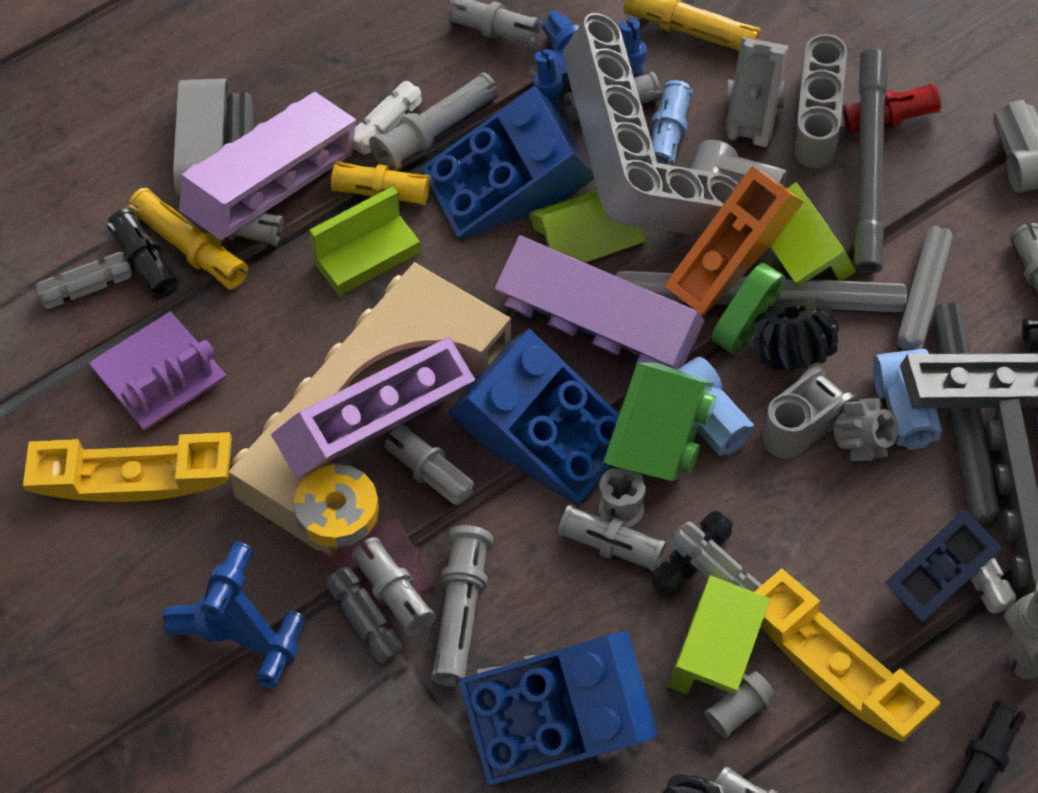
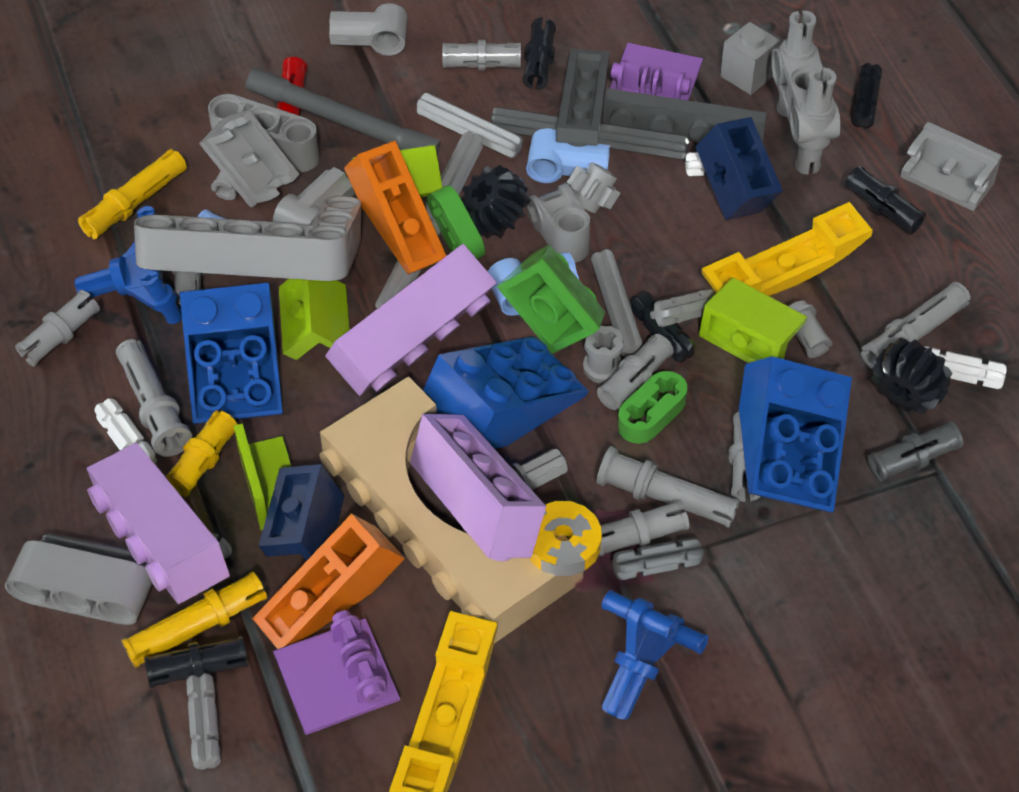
camera: 75 degrees left, 5 degrees down
(255, 331) = (330, 581): none -> orange slope
(319, 287) = (301, 512): none -> dark blue panel
(572, 569) = (659, 412): none -> bright green beam
(711, 497) = (616, 300): none -> light grey axle

